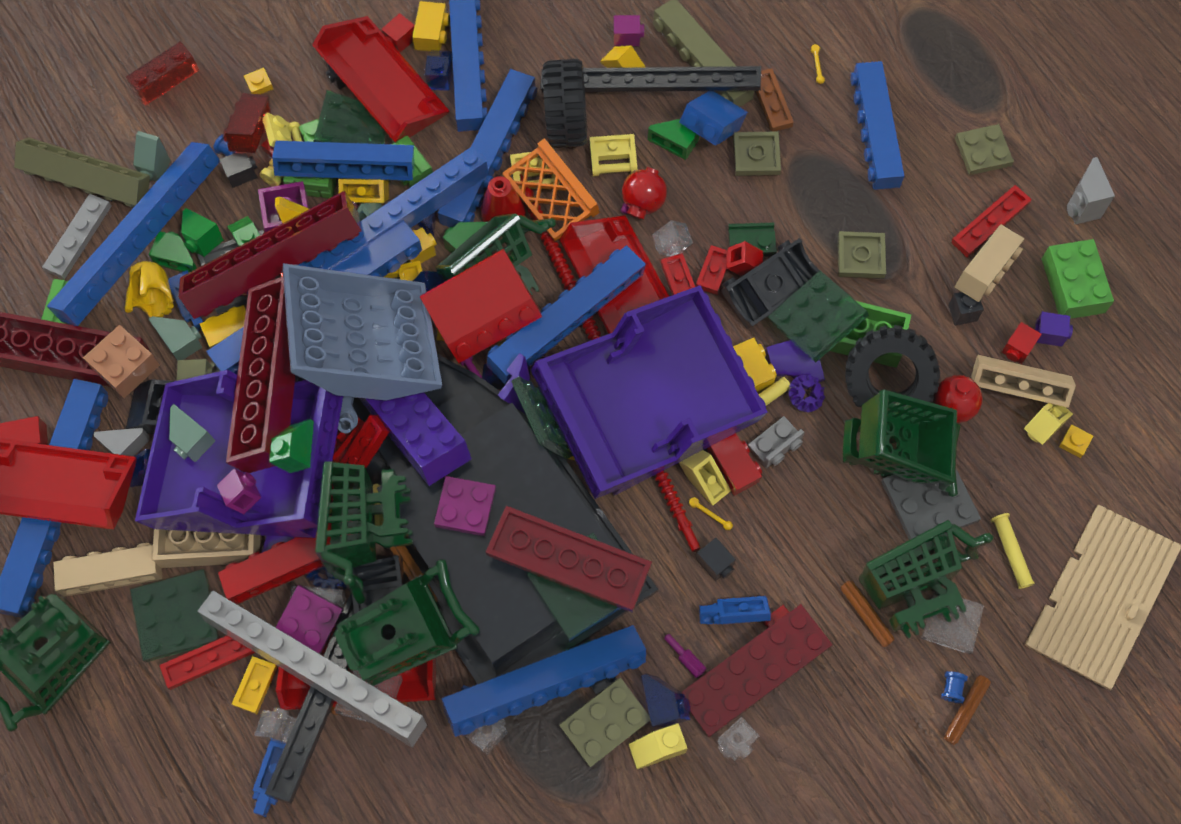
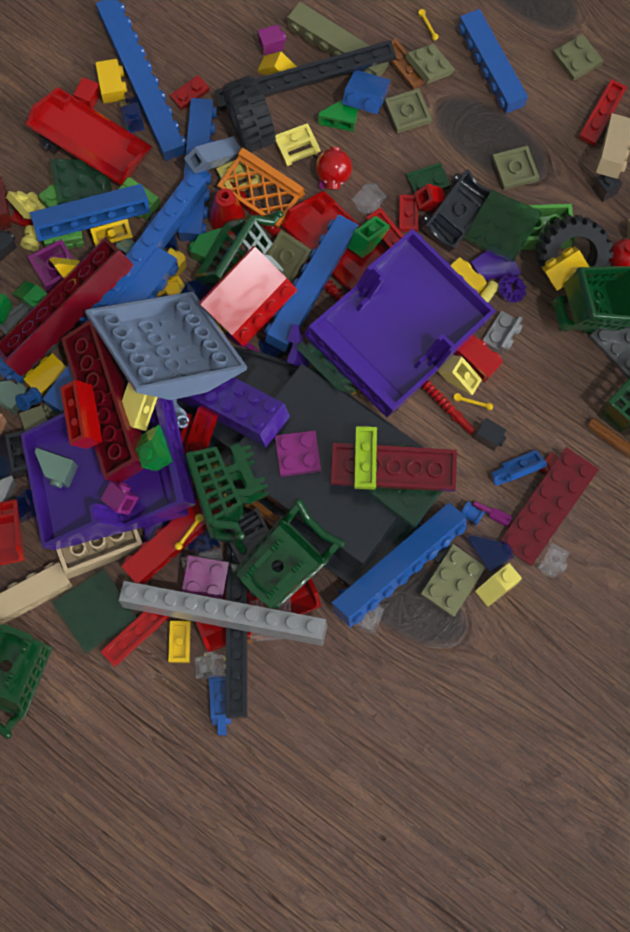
camera: 25 degrees left, 5 degrees up
(195, 347) = (28, 399): none -> blue bush
(227, 379) = (81, 414): none -> red brick
(289, 570) = (199, 518): none -> yellow hinge
(296, 395) = (138, 407): none -> light yellow slope
(506, 136) = (213, 154): none -> sand blue brick
(520, 61) = (193, 89): none -> red plate
(535, 536) = (365, 457): none -> lime plate
(553, 275) = (289, 254): none -> olive plate
(654, 281) = (368, 236): none -> green slope
(658, 648) = (472, 513): none -> blue bush
(802, 107) = (430, 63): none -> olive plate
(865, 385) = (563, 267): none -> yellow brick

